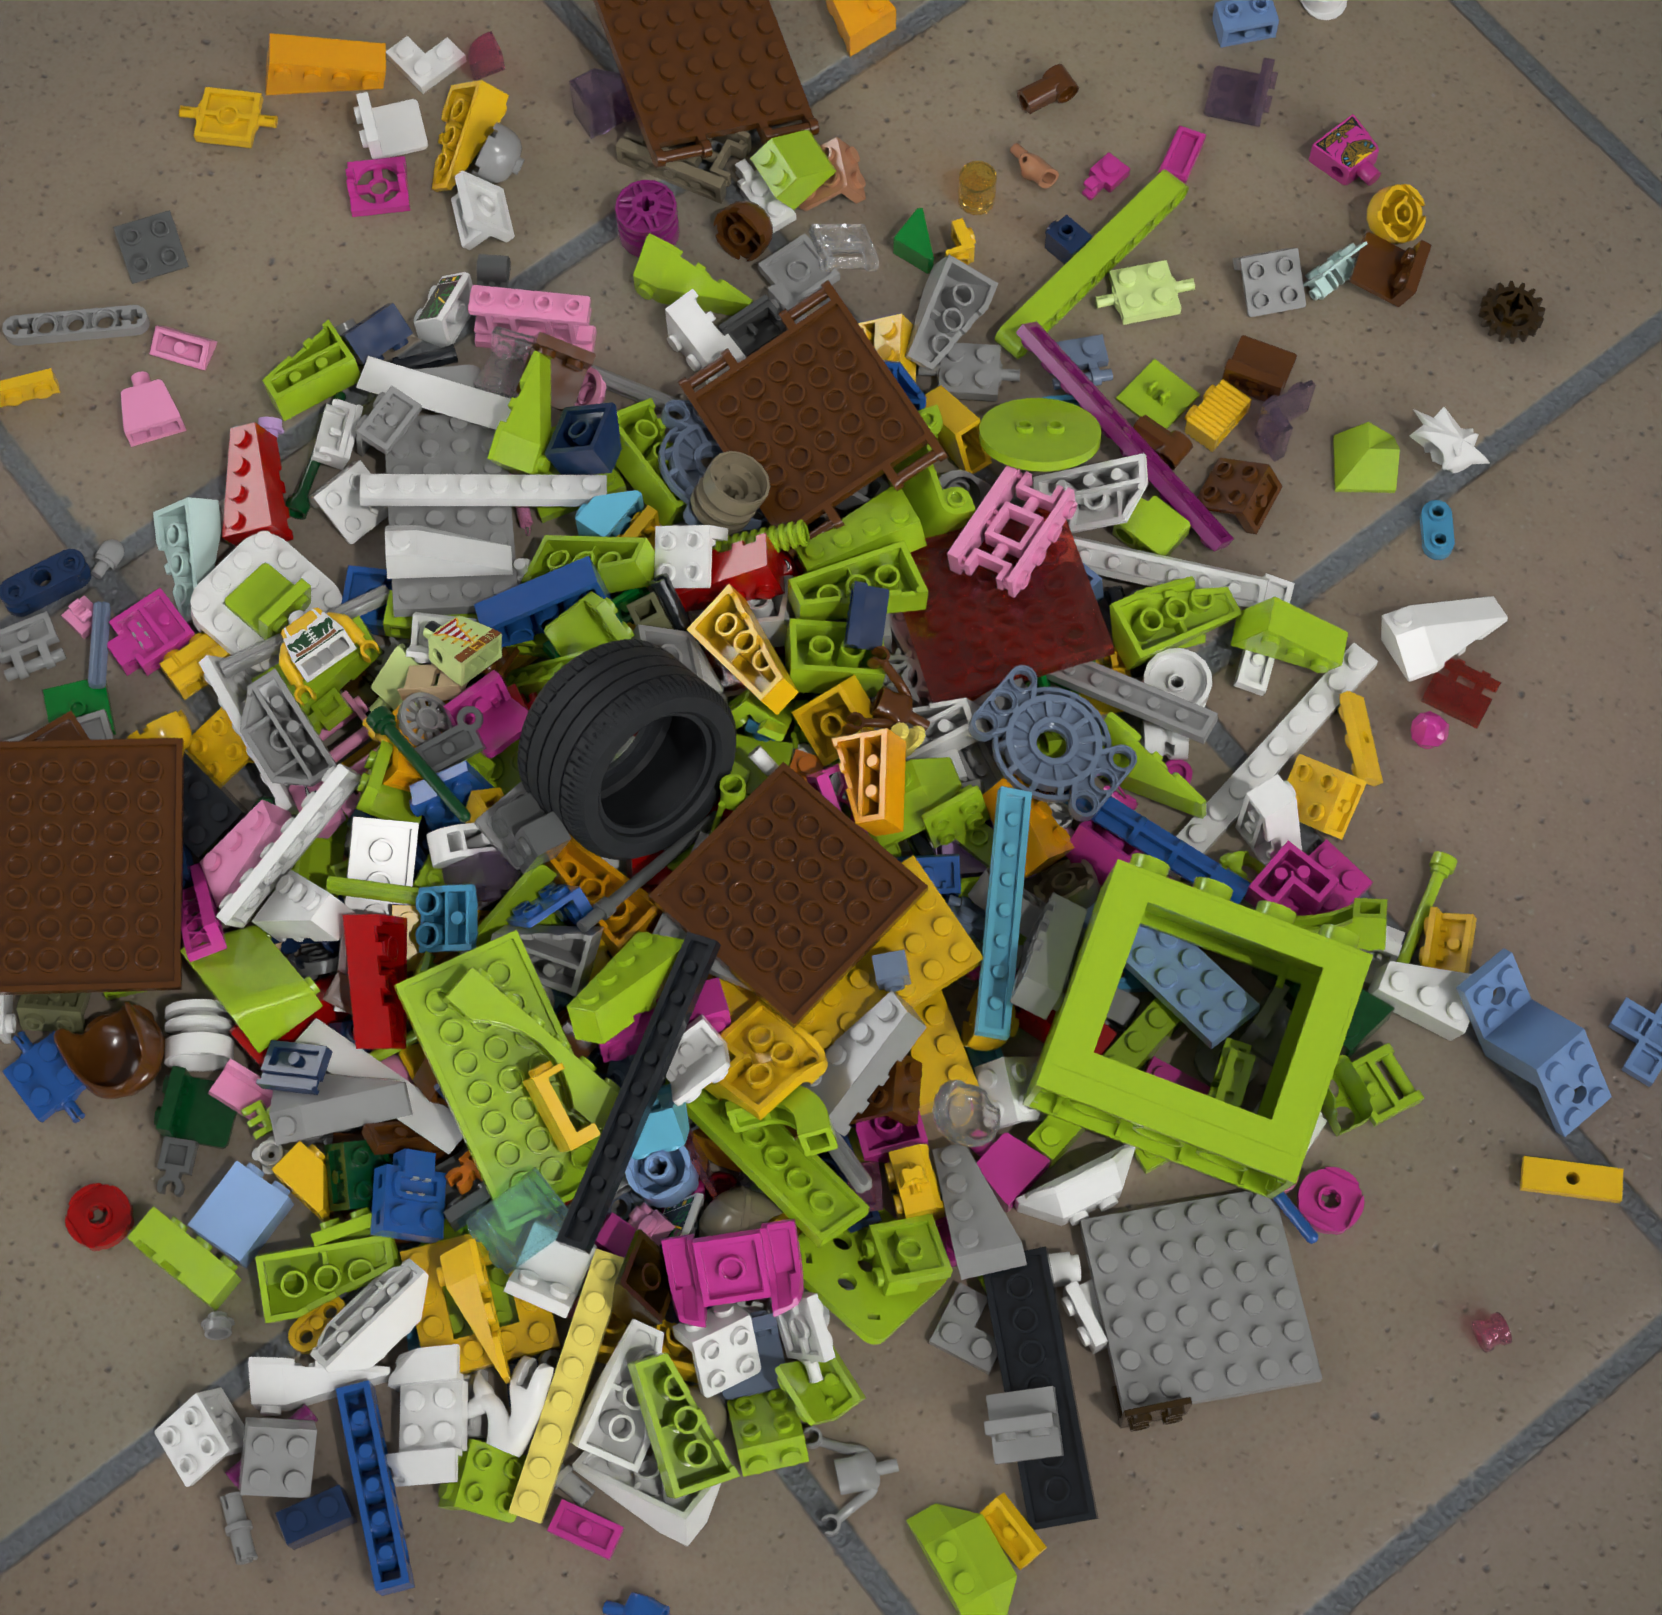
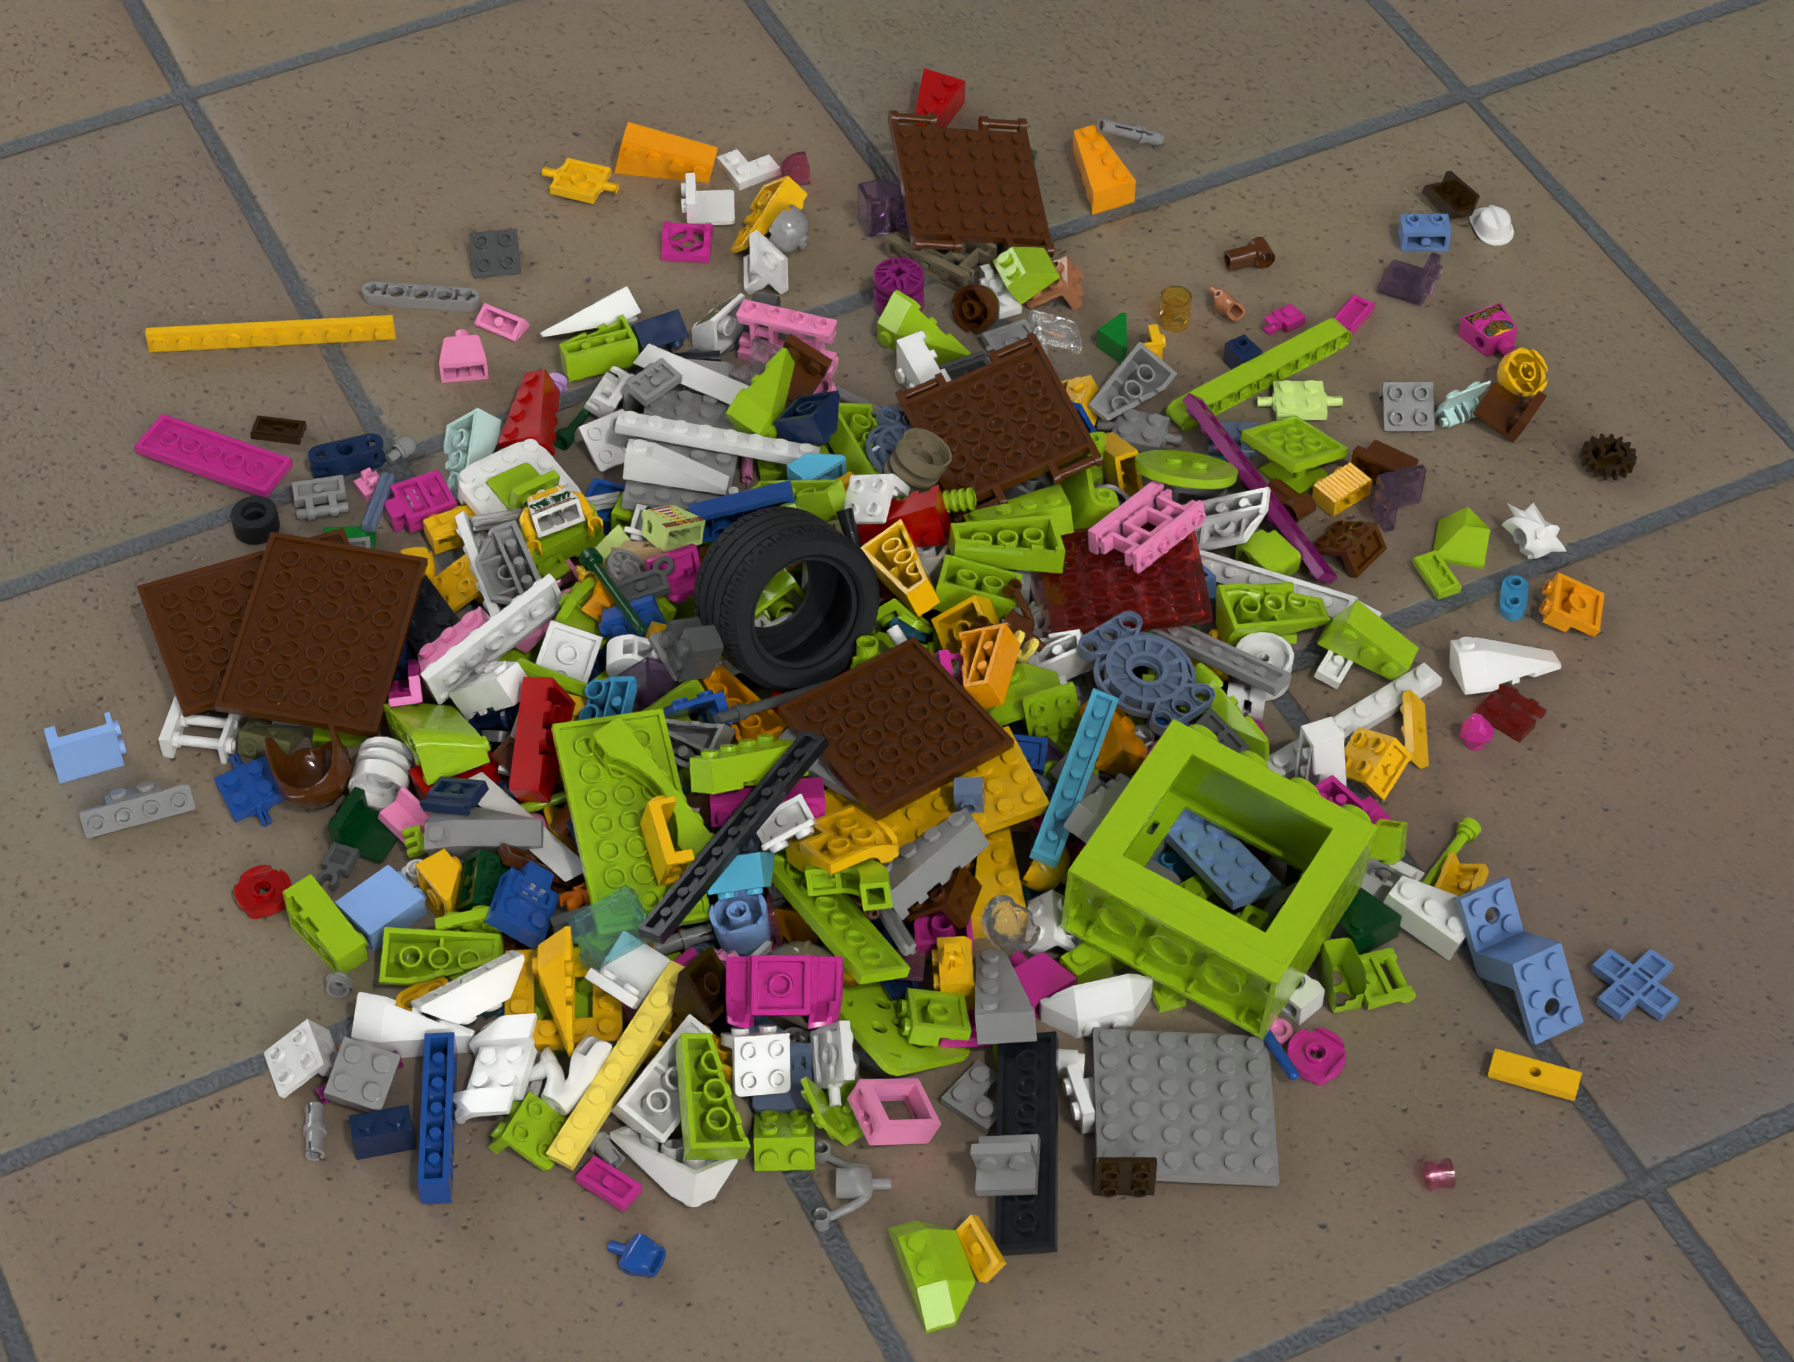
camera: 10 degrees right, 20 degrees down
(307, 310) = (603, 311): none -> white wedge
(866, 616) = (1008, 557): dark blue panel -> none
(869, 1405) = (878, 1128): none -> bright pink window
(1148, 800) = (1222, 730): none -> dark grey hinge
(1153, 364) = (1294, 444): none -> lime plate
(1346, 515) = (1436, 574): none -> lime plate
(1506, 533) = (1572, 605): none -> light orange plate

